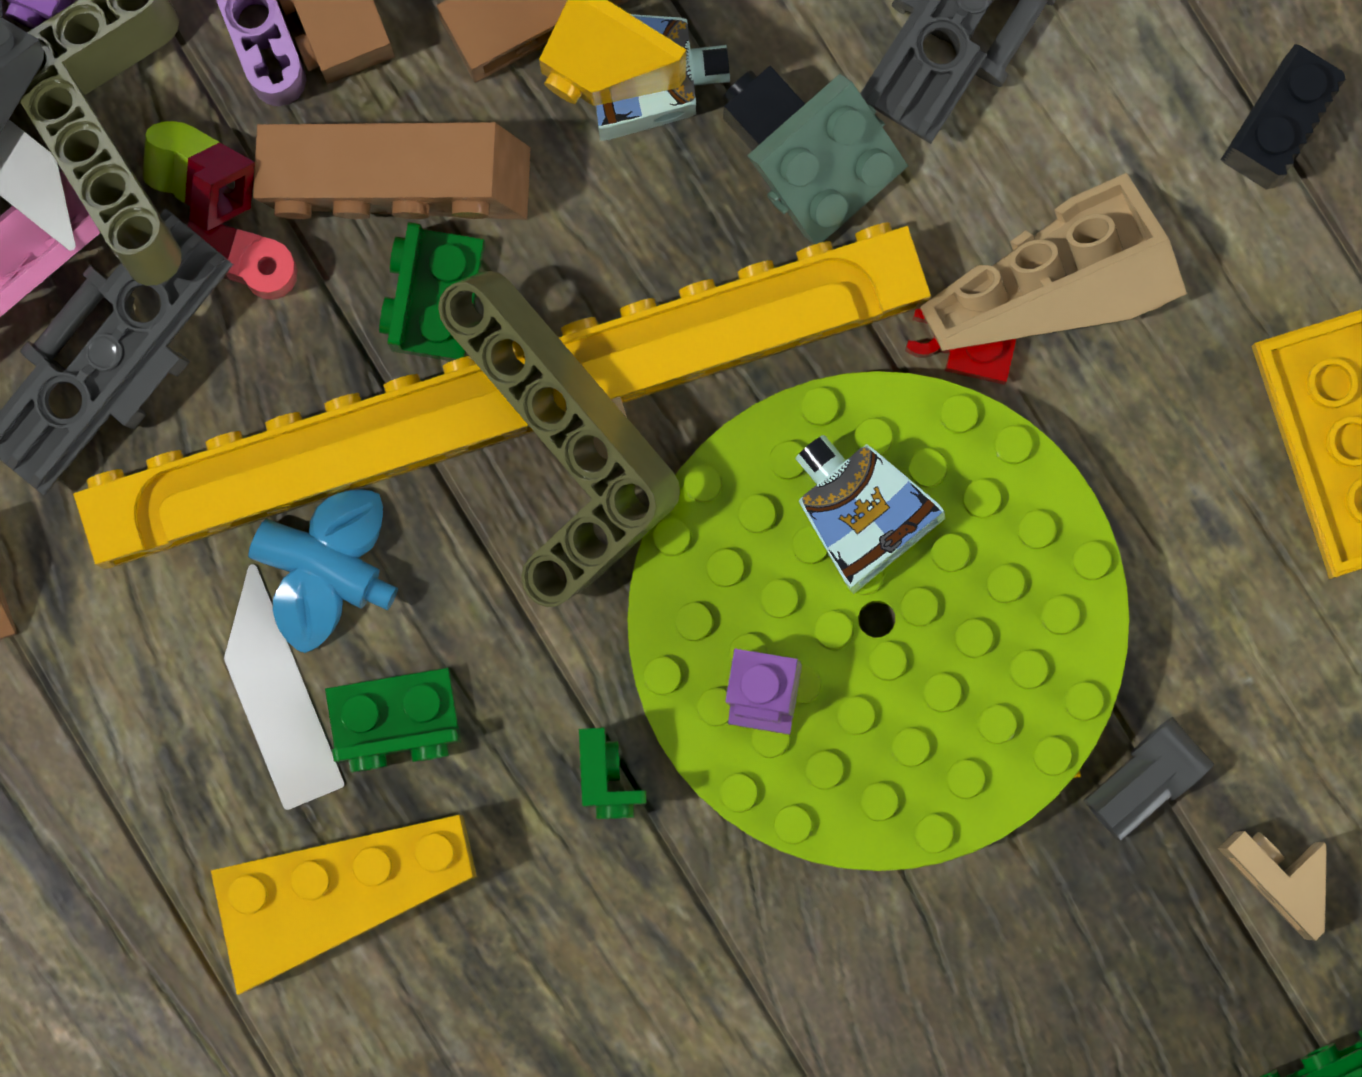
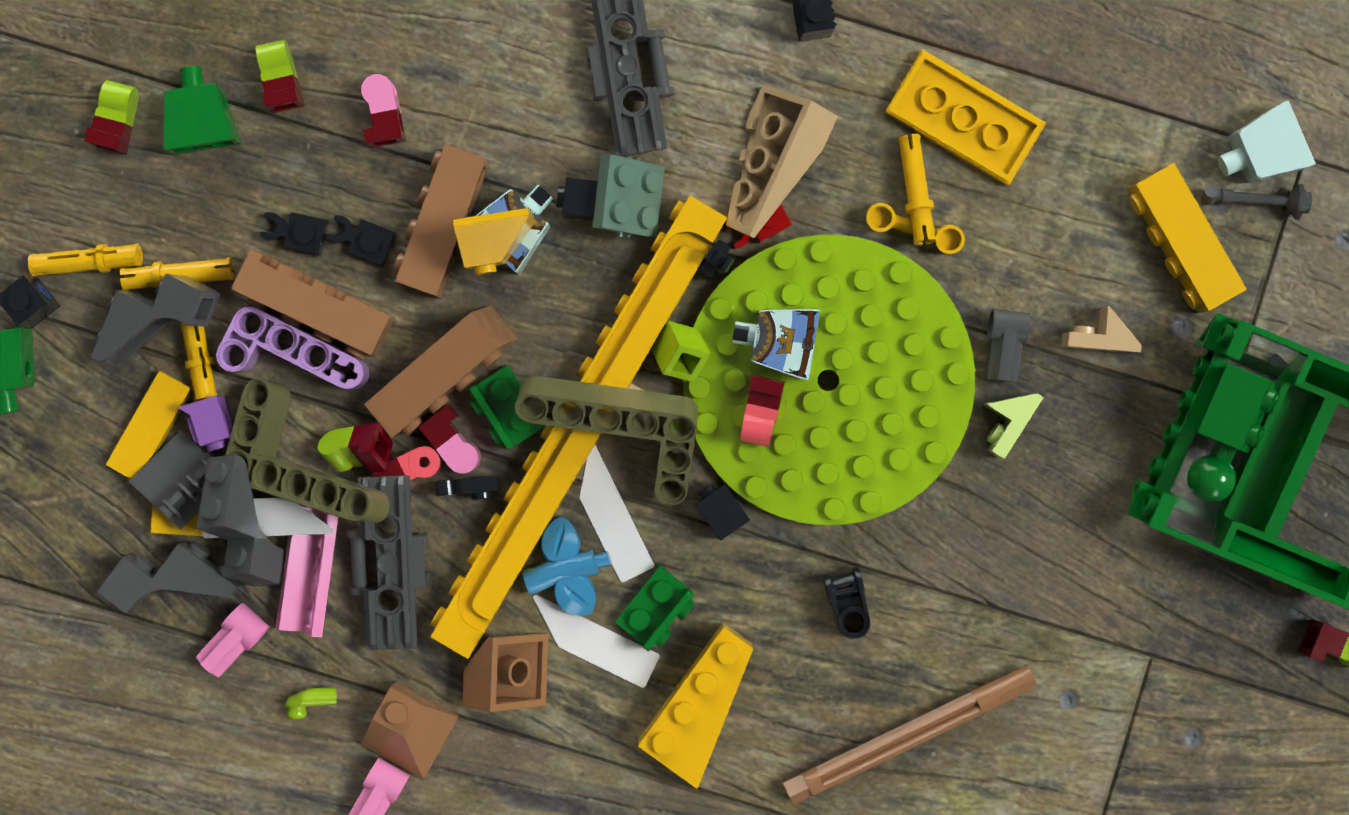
camera: 40 degrees left, 5 degrees up
(129, 630) = (507, 673): none -> medium nougat slope
(306, 359) = (479, 487): none -> black plate
(321, 271) = (449, 442): none -> leg
(439, 558) = (612, 520): none -> white sticker
(590, 664) = (721, 510): none -> black brick
(599, 765) = (765, 552): green bracket -> none
(651, 926) = (848, 600): none -> black piece
(719, 413) = (680, 351): none -> lime brick
(756, 578) = (761, 410): none -> leg
(762, 691) = (808, 457): medium lavender window -> none
(868, 339) = (716, 260): none -> black plate
(1083, 879) = (1016, 413): none -> yellowish green slope
(1191, 575) = (882, 217): none -> yellow bar
(1194, 497) = (919, 205): none -> yellow pin

